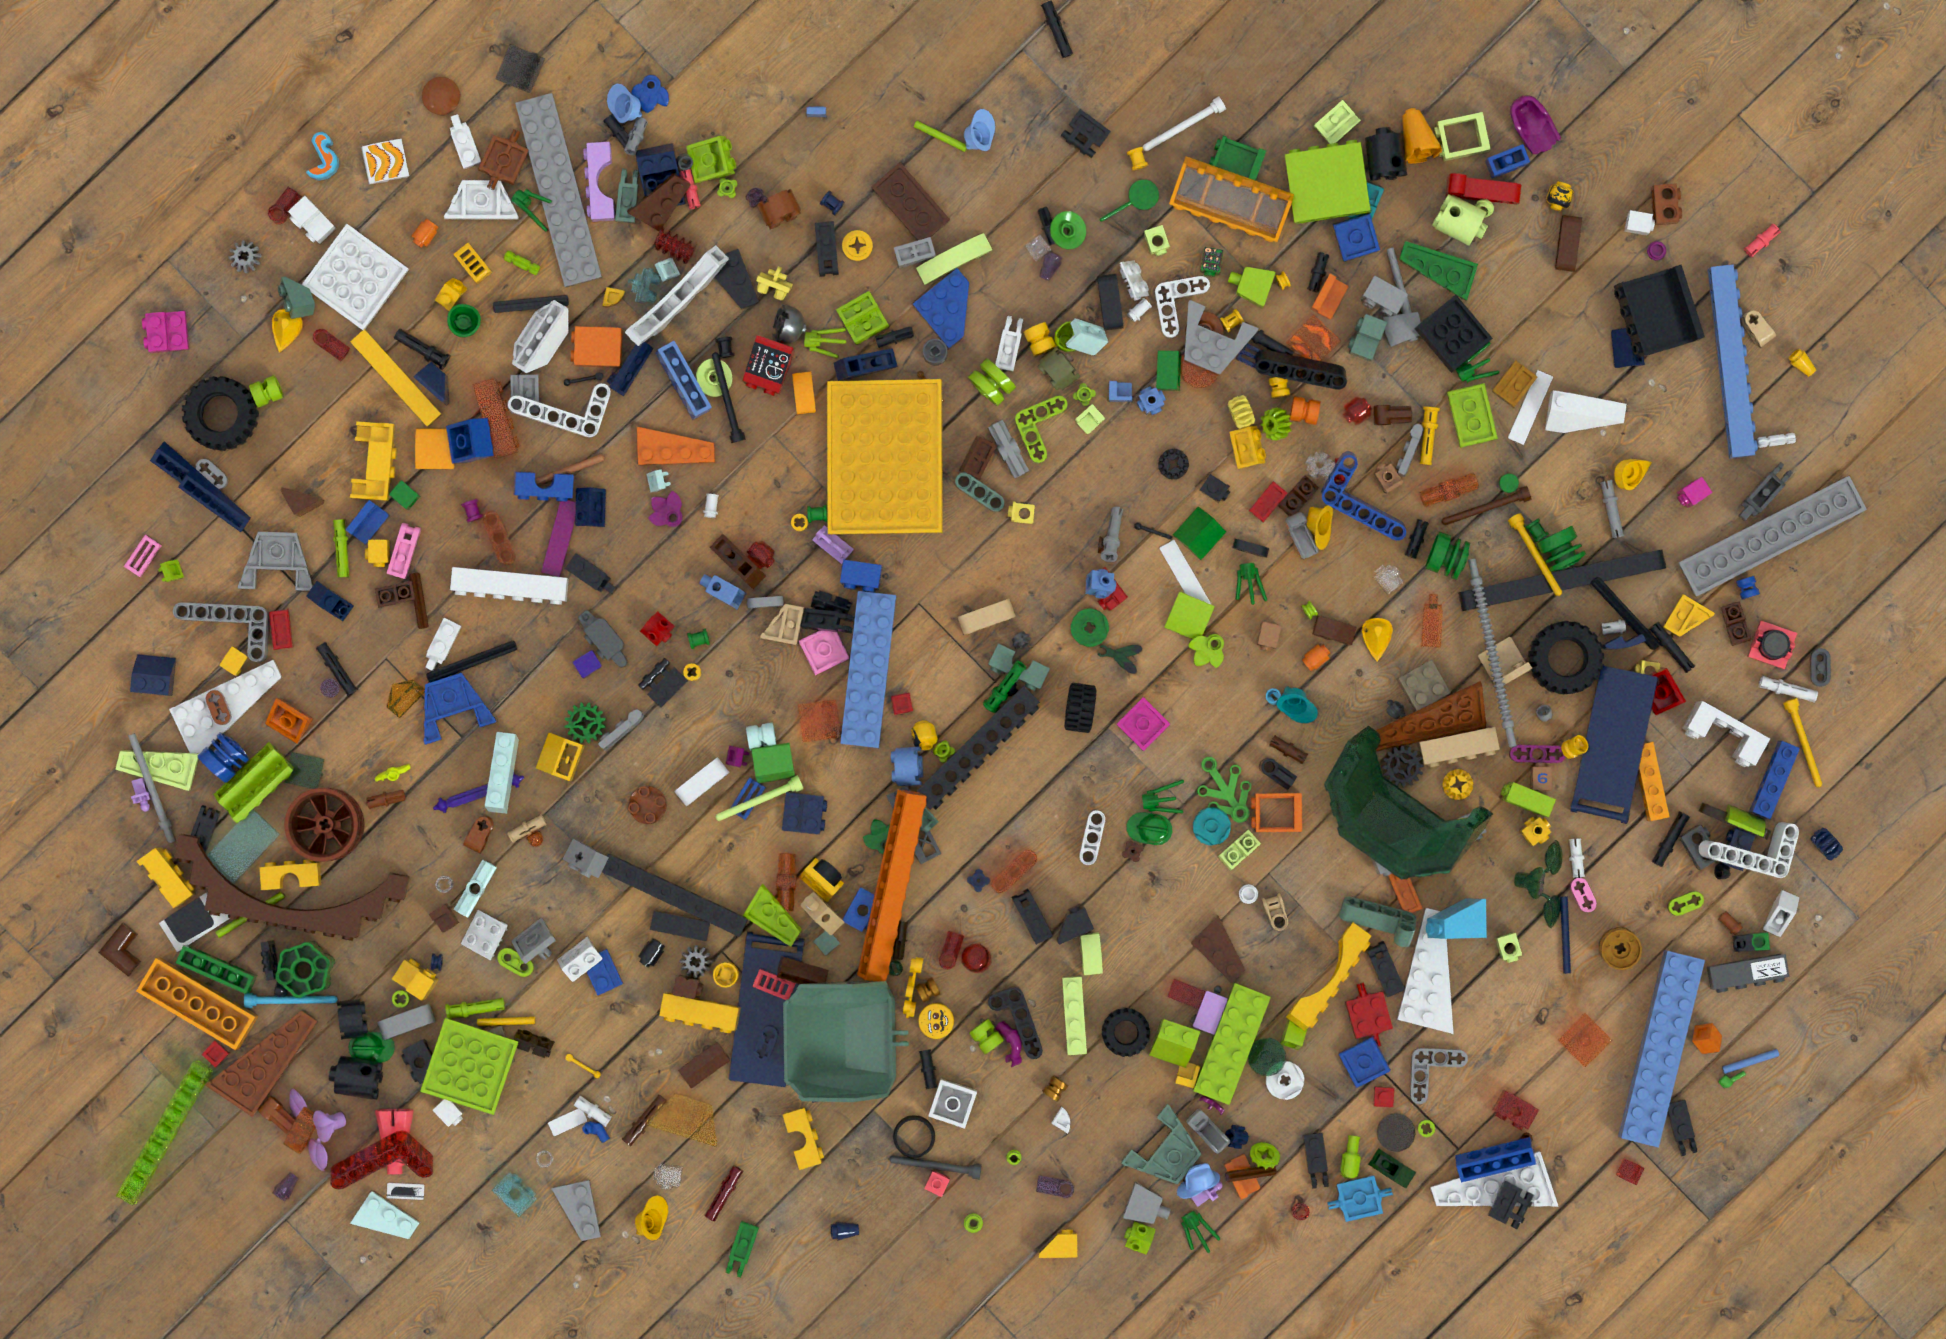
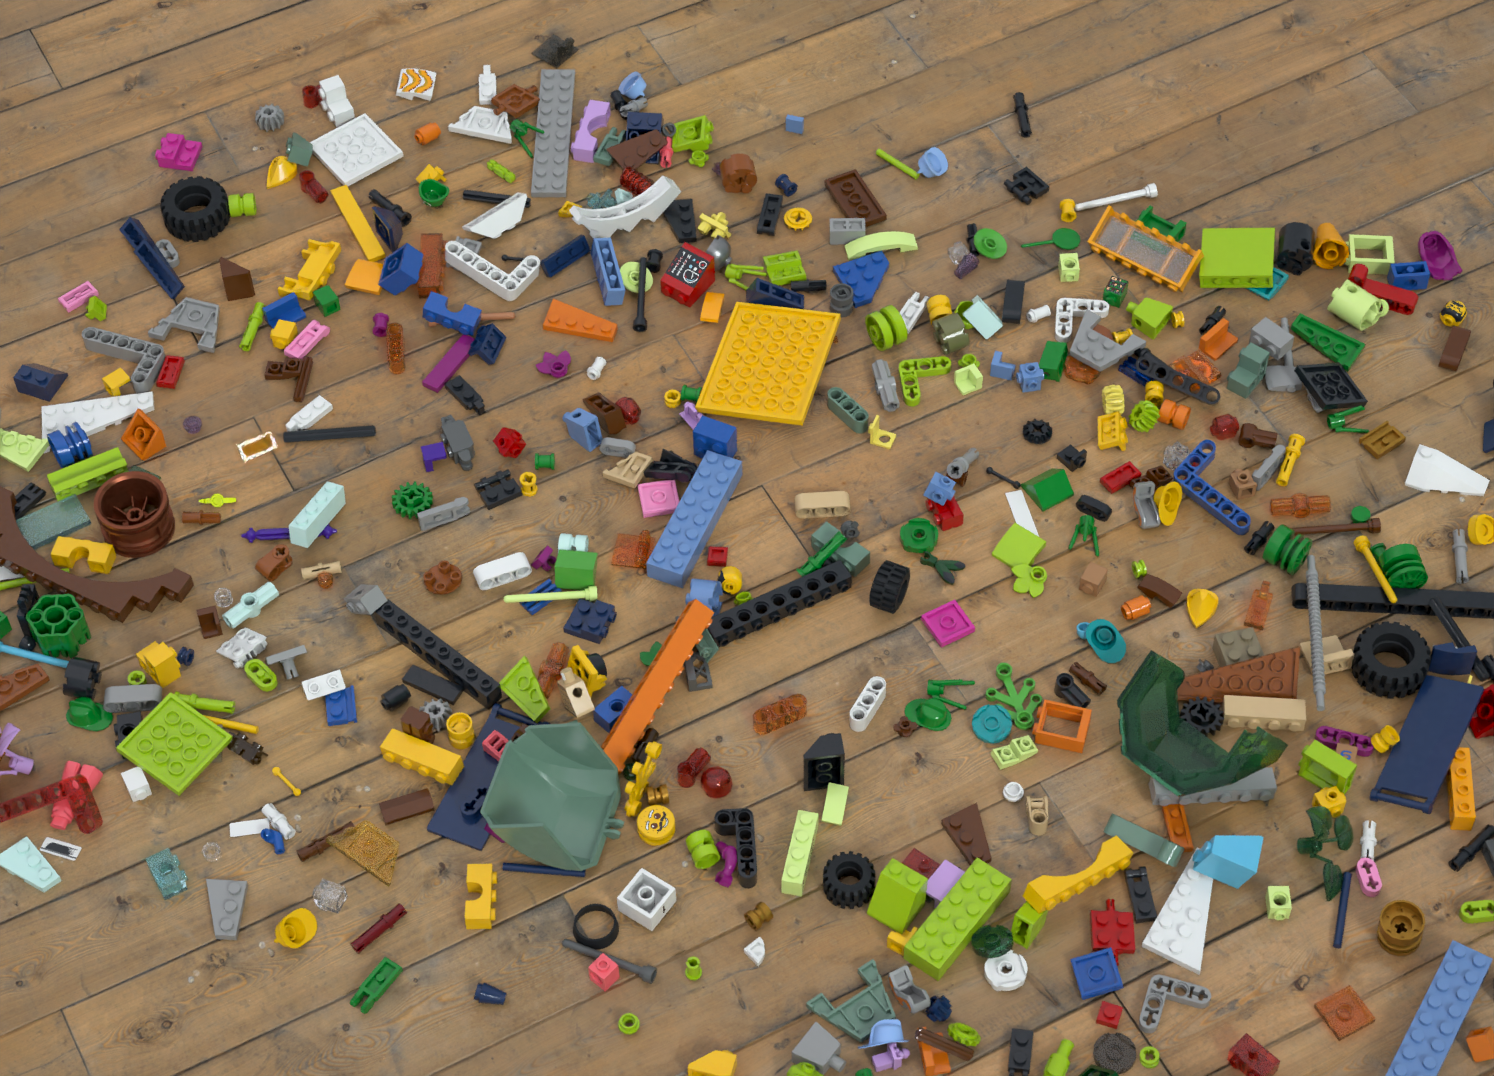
camera: 15 degrees right, 35 degrees down
(222, 705) = (89, 409): dark orange beam -> none
(324, 649) = (204, 405): black pin -> none
(328, 157) = (368, 76): medium azure animal -> none
(329, 601) = (224, 360): dark blue slope -> none
(356, 1077) = (62, 727): black cylinder -> none
(441, 95) = (481, 54): dark orange dish -> none
(449, 698) = (295, 454): blue wing -> none
(483, 274) = (461, 166): yellow slope -> none
(509, 584) = (389, 383): white brick -> none
(560, 756) = (379, 520): yellow slope -> none
(597, 347) = (541, 235): orange brick -> none
(650, 96) = (656, 88): blue plate -> none
(656, 480) = (556, 339): light aqua tile -> none
(928, 1069) = (632, 865): black pin -> none
(978, 457) = (856, 380): reddish brown hinge -> none
(978, 885) = (741, 711): dark blue plate -> none
(1032, 917) = (785, 759): black plate -> none
(1053, 1186) = (727, 1008): clear purple piece -> none
(1137, 285) = (1038, 288): white hinge -> none
(1212, 1103) = (921, 975): magenta piece -> none
(1337, 122) = (1256, 219): yellowish green plate -> none
(1356, 237) = (1254, 303): blue tile -> none
(1388, 578) = (1223, 561): clear brick -> none
(1472, 415) = (1335, 457): lime tile -> none
(1530, 407) = (1393, 465): white sticker -> none
(1544, 708) = (1359, 706): light grey hinge -> none

